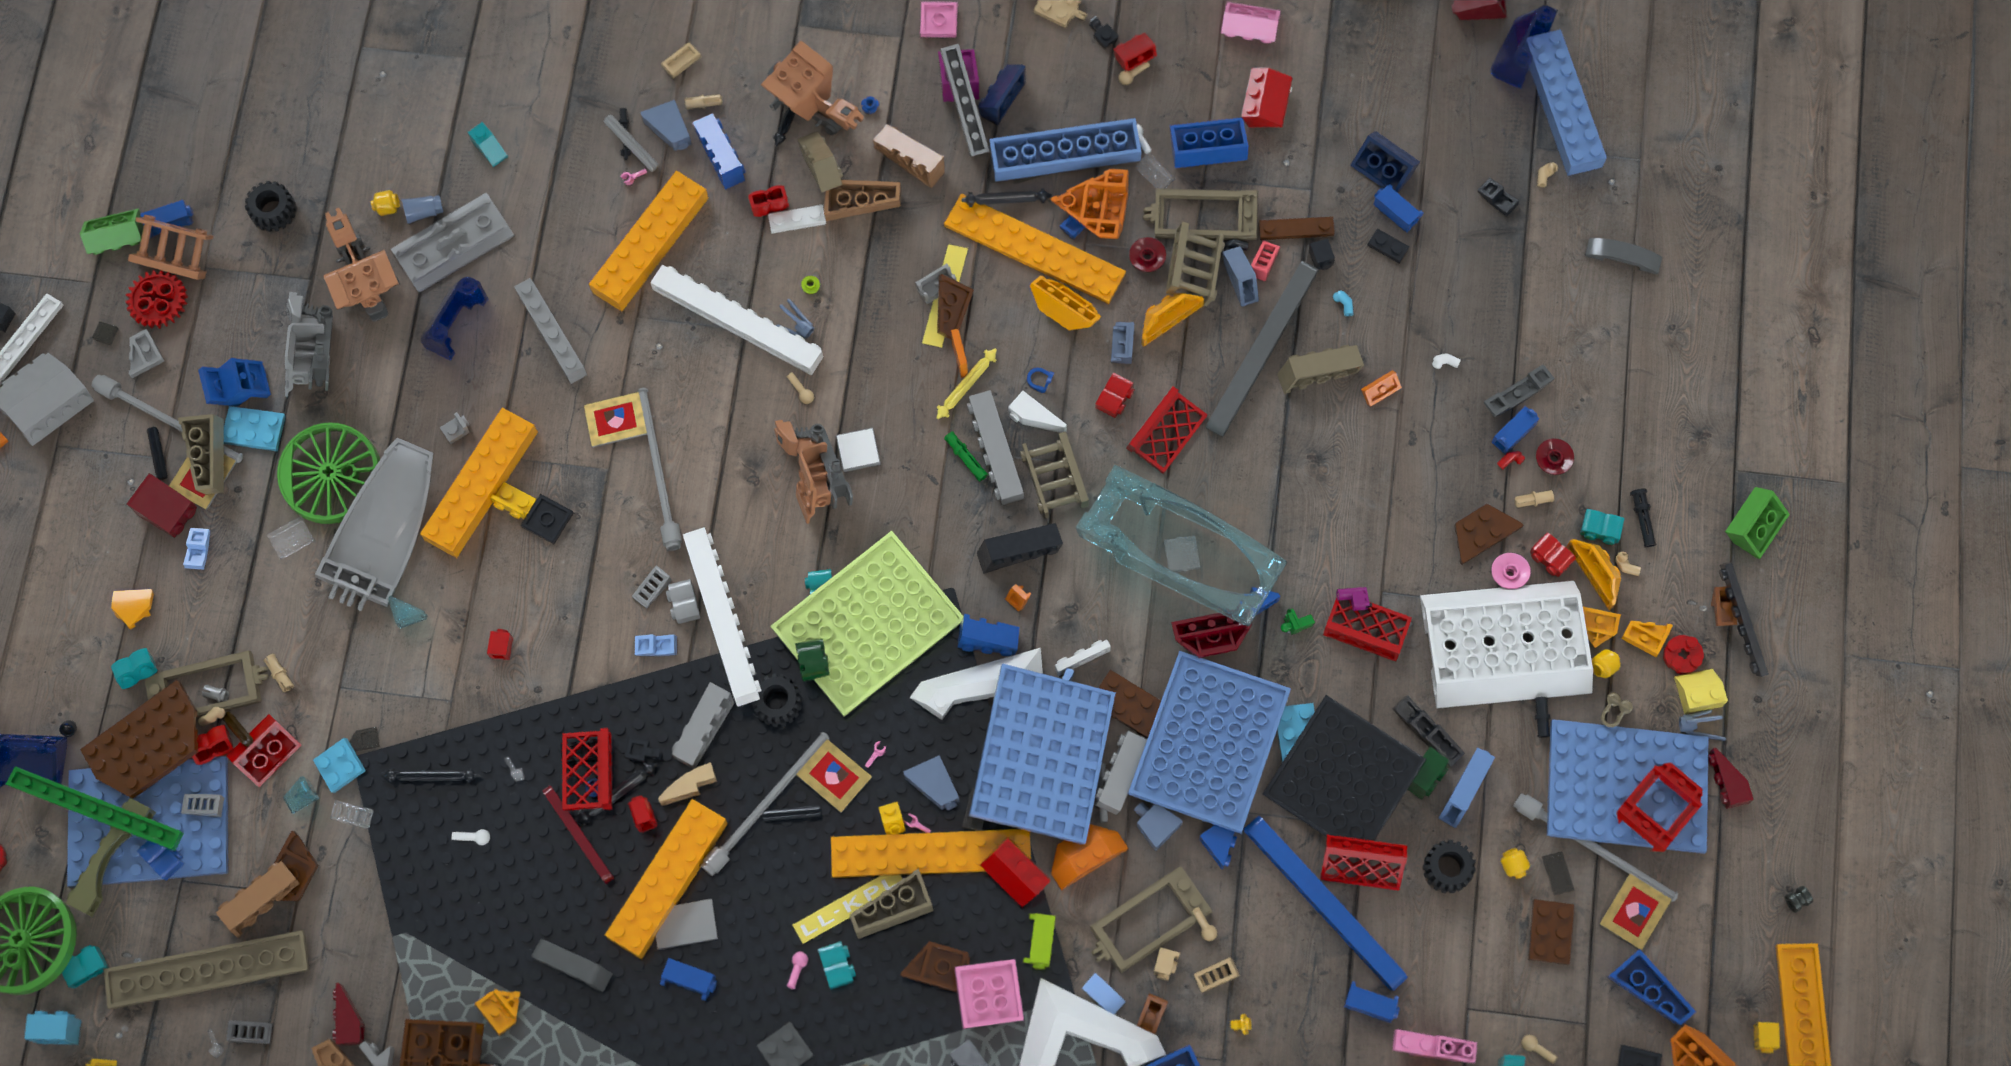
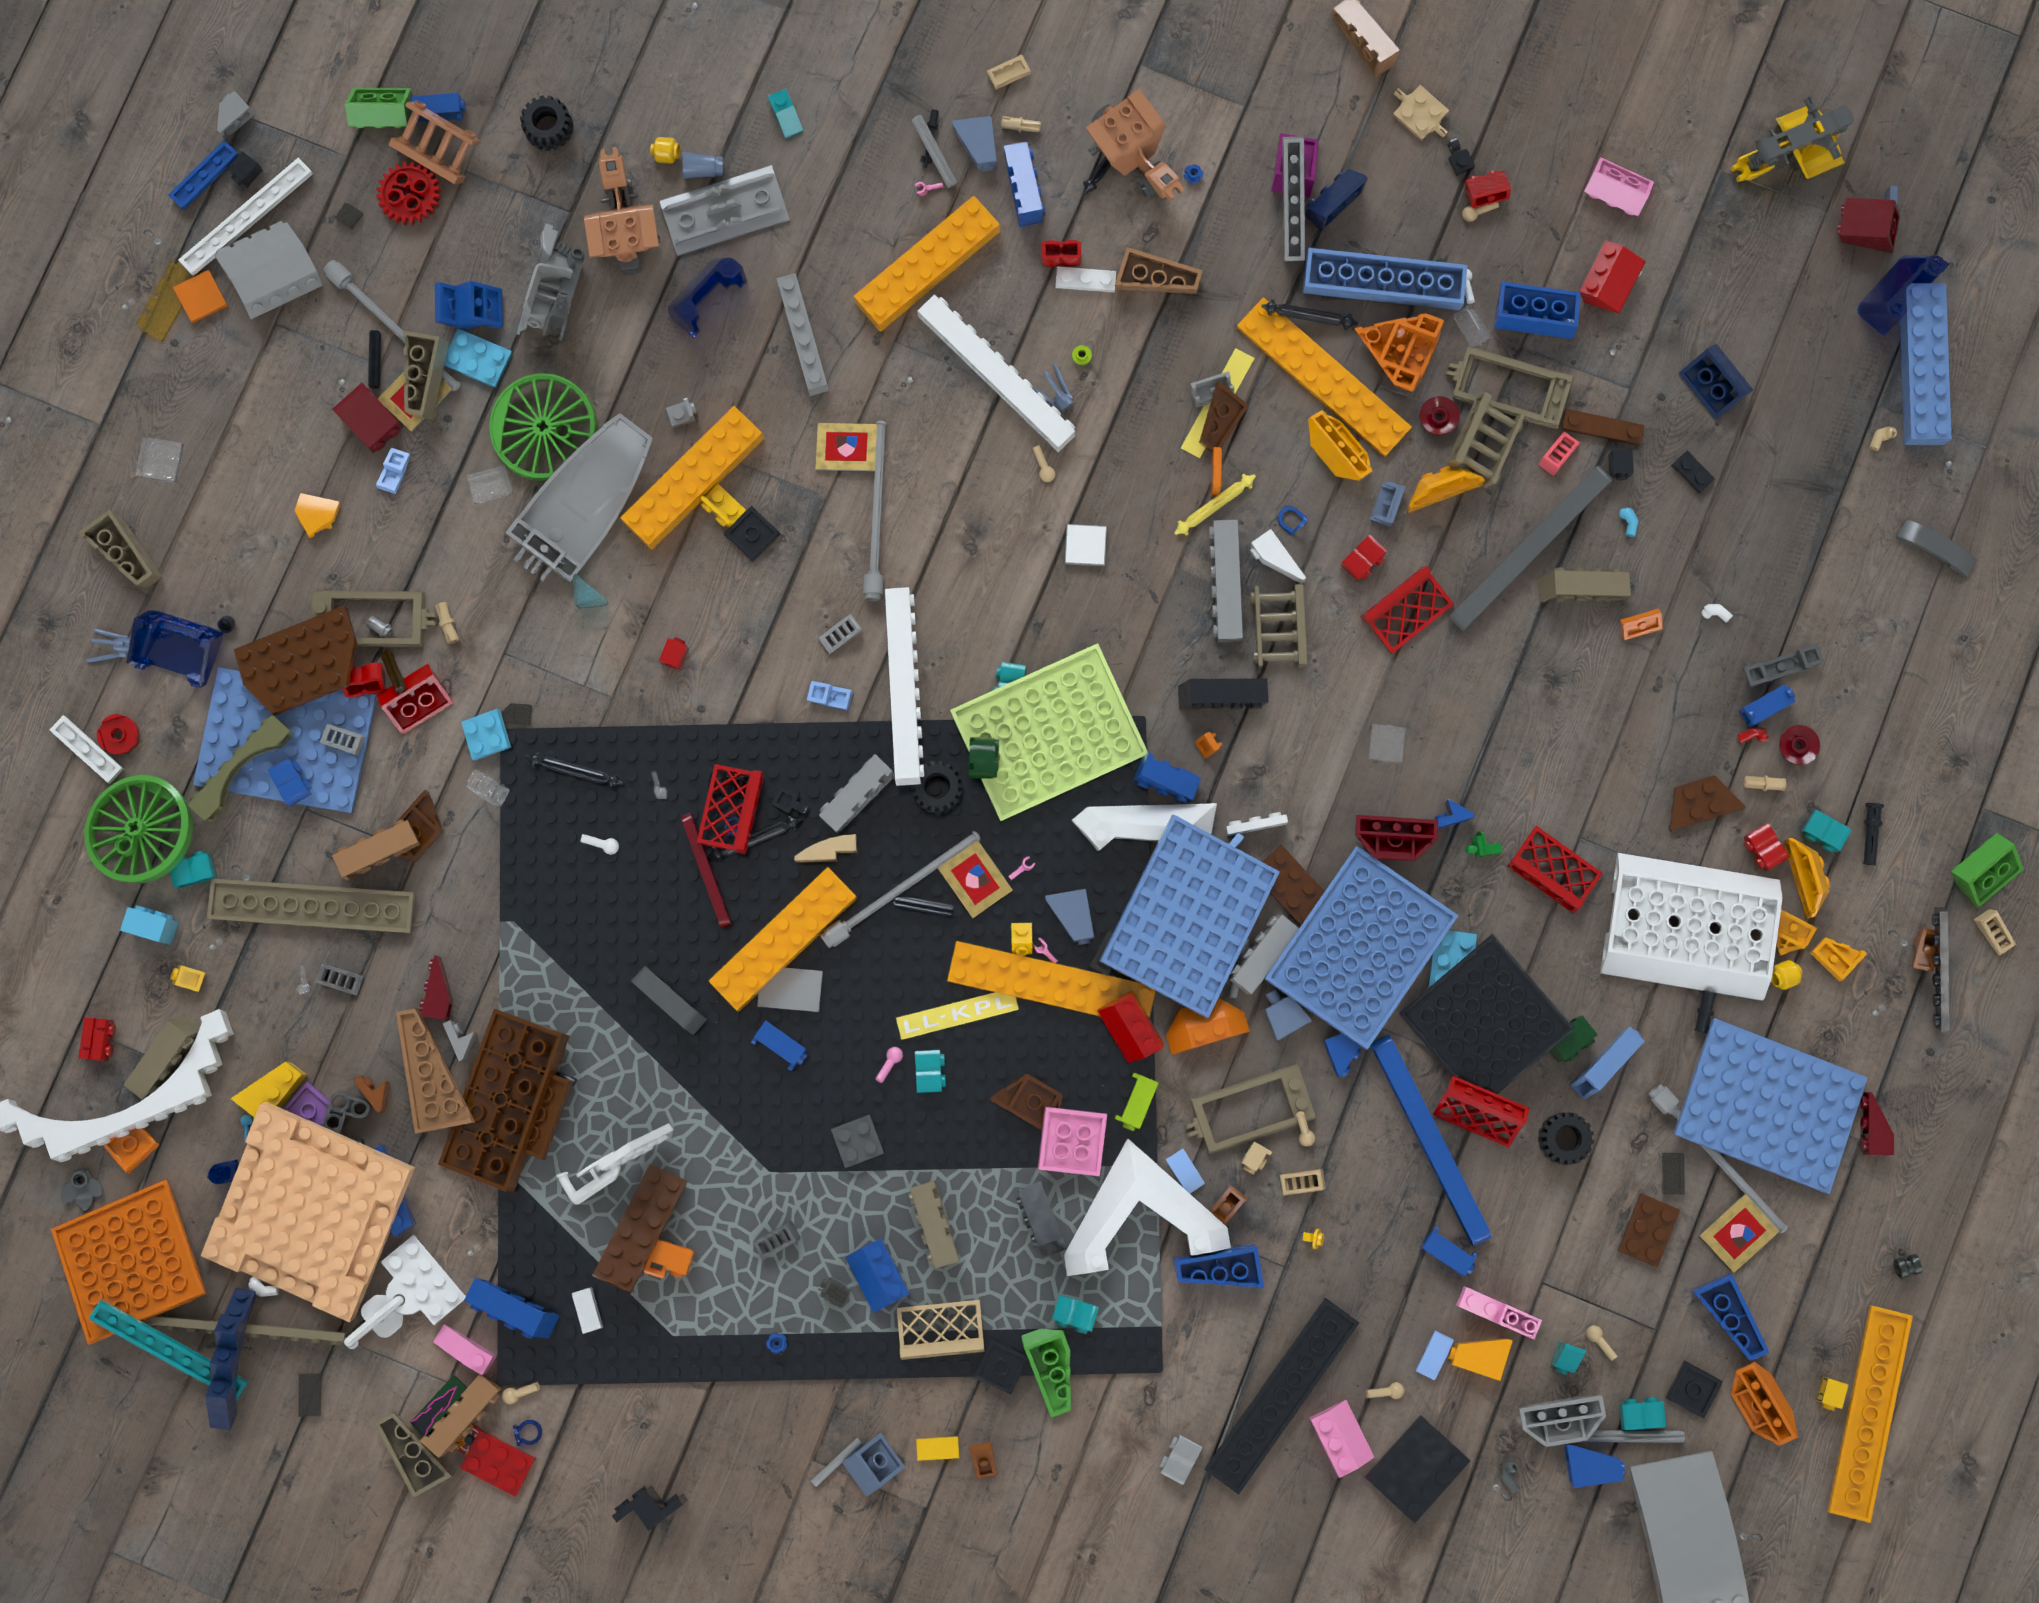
camera: 15 degrees right, 10 degrees up
(95, 808) = (235, 717): green plate -> none
(136, 667) = (304, 580): teal brick -> none
(143, 353) = (383, 248): light grey wing -> none
(212, 716) = (371, 650): tan arm -> none
(300, 795) = (441, 755): clear light blue slope -> none
(499, 1009) = (588, 1024): light orange slope -> none
(642, 814) = (774, 868): red brick -> none
(683, 601) = (868, 658): light grey brick -> none
(820, 161) = (1126, 225): dark tan wedge -> none
(820, 470) = (1041, 560): nougat piece -> none
(893, 906) = (1002, 1028): dark tan wedge -> none
(910, 155) = (1221, 241): wedge -> none
(938, 19) = (1290, 97): bright pink plate -> none
(963, 453) = (1194, 583): green pin -> none
(1072, 227) = (1368, 364): blue tile -> none
(1124, 484) = (1347, 657): clear light blue windscreen -> none
(1235, 243) = (1532, 428): black arm -> none
(1241, 276) = (1530, 464): sand blue slope -> none
(1358, 597) = (1553, 837): magenta piece -> none
(1397, 208) = (1714, 433): blue brick -> none
(1427, 730) = (1585, 994): black slope -> none
(1497, 197) = (1823, 449): black slope -> none
(1515, 564) = (1724, 846): bright pink dish -> none
(1515, 863) = (1633, 1152): yellow head -> none
(1614, 700) = (1783, 1015): dark tan piece -> none
(1625, 566) = (1837, 879): tan arm -> none
(1646, 826) = (1775, 1153): red wedge -> none
(1676, 662) = (1878, 979): red plate -> none
(1689, 722) = (1851, 1058): sand blue plant -> none
(1700, 691) = (1874, 1028): light yellow slope -> none
(1778, 580) = (1981, 922): none -> tan slope

